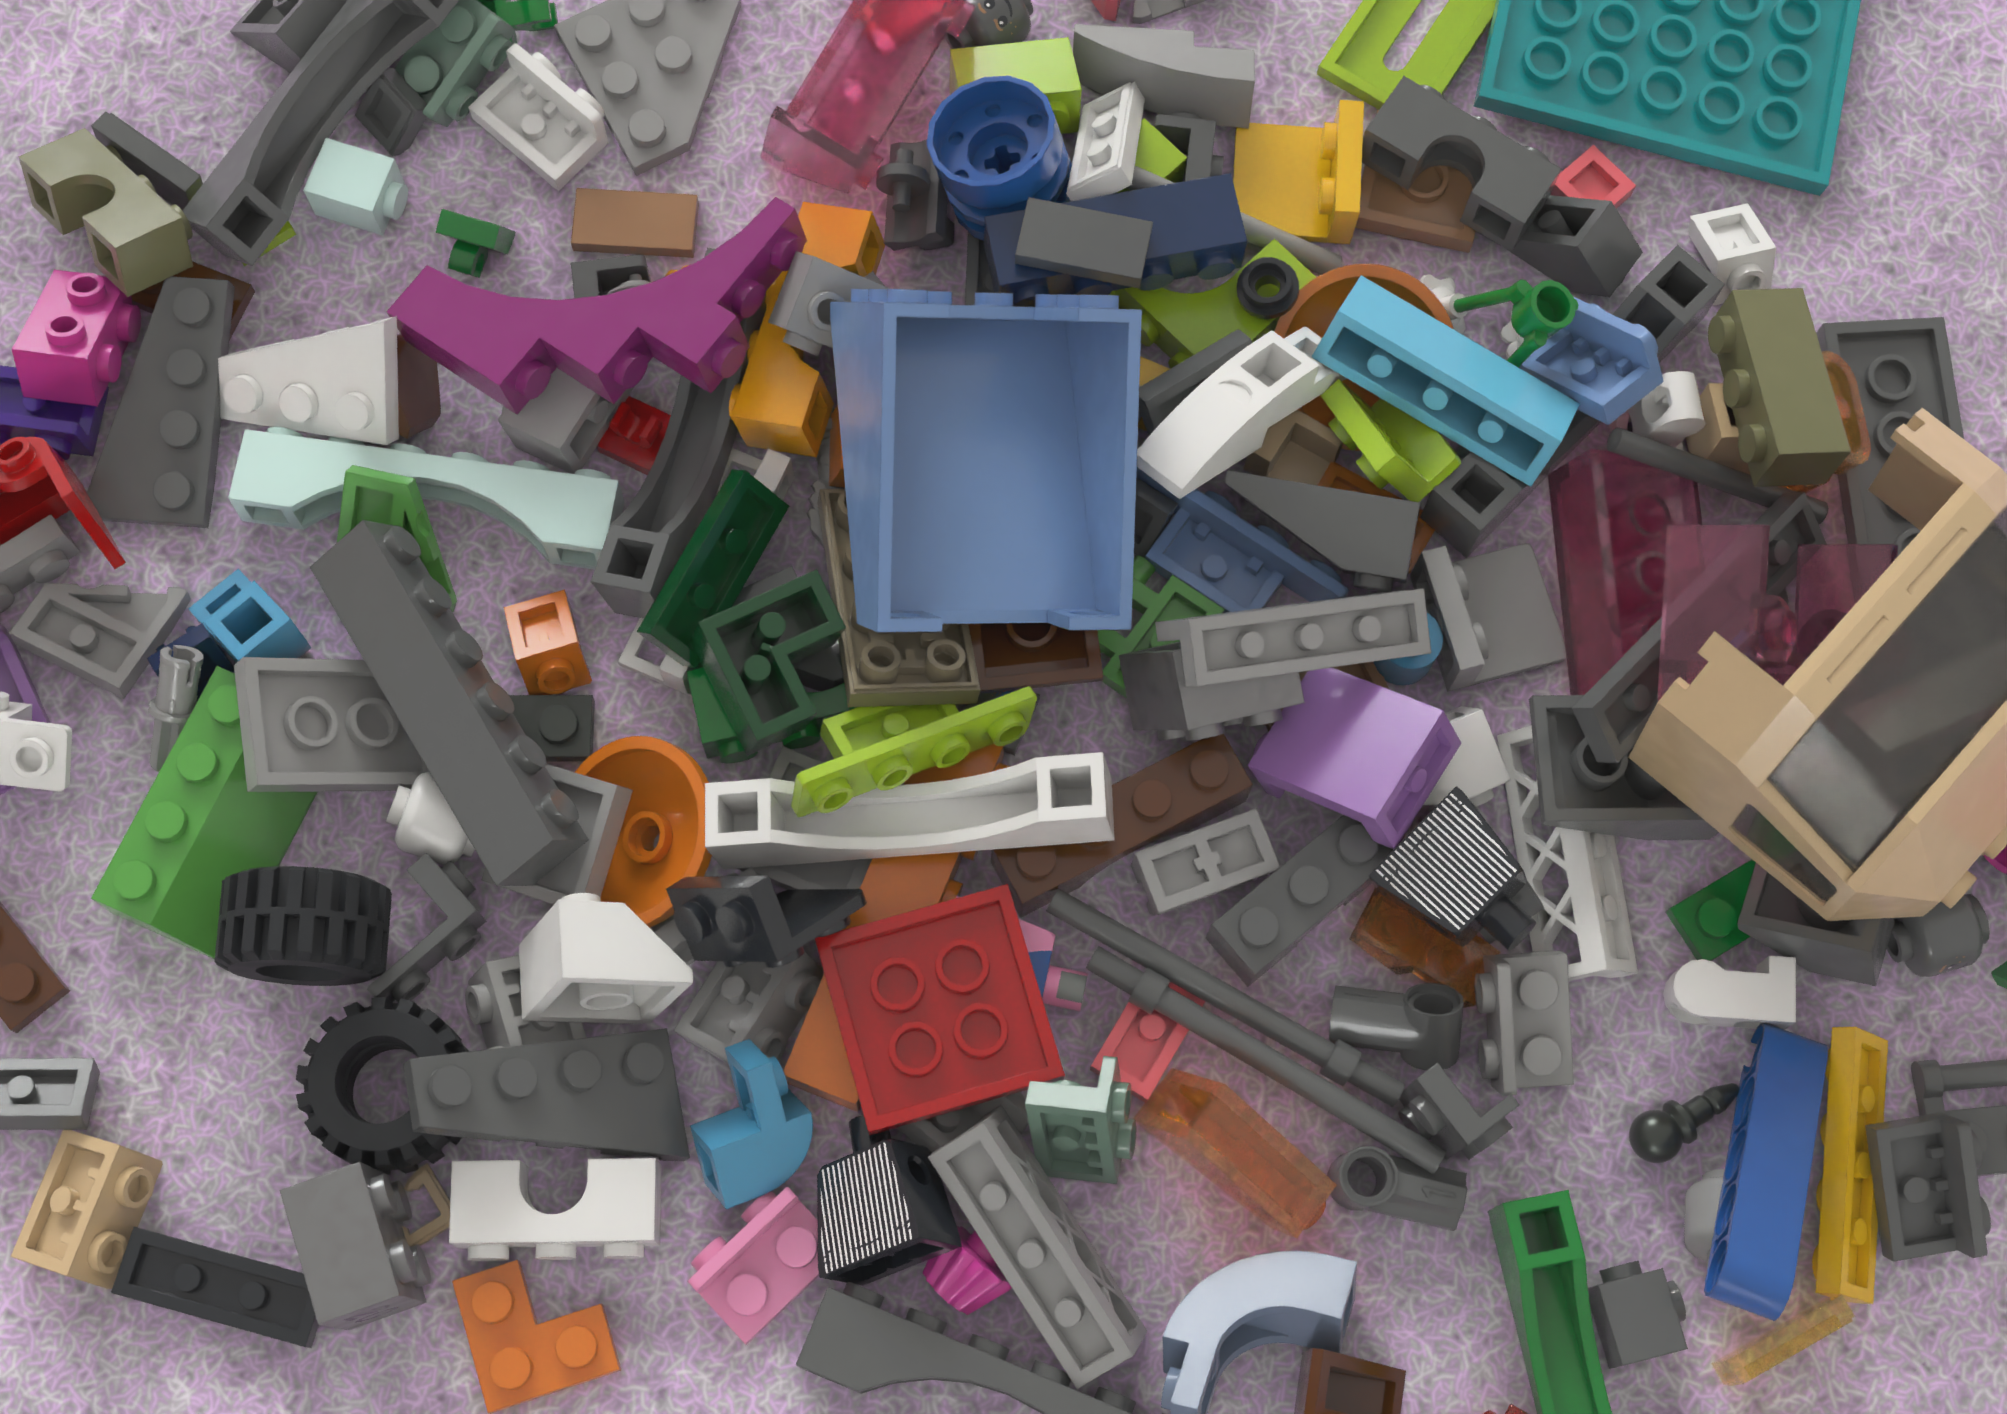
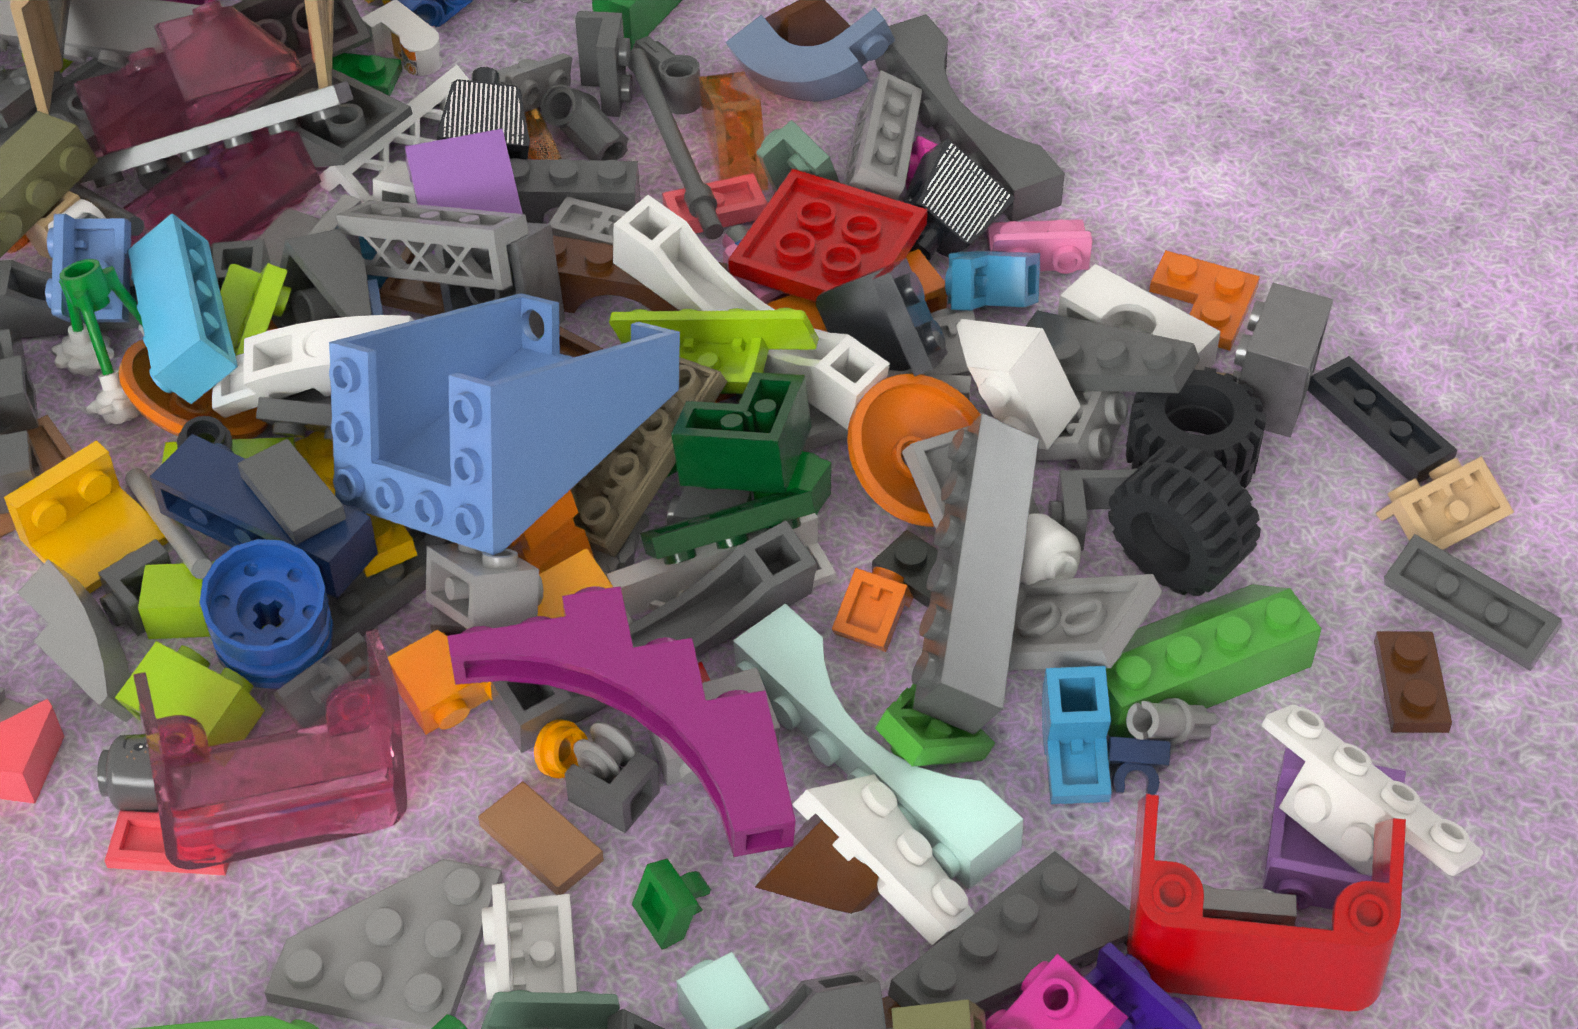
camera: 135 degrees left, 25 degrees down
(99, 630) = (1194, 830): light grey wing -> none
(1106, 144) = (174, 607): white tile -> none
(1337, 1060) = (637, 128): dark grey bar -> none
(1660, 1133) = (512, 20): pearl dark grey bar -> none

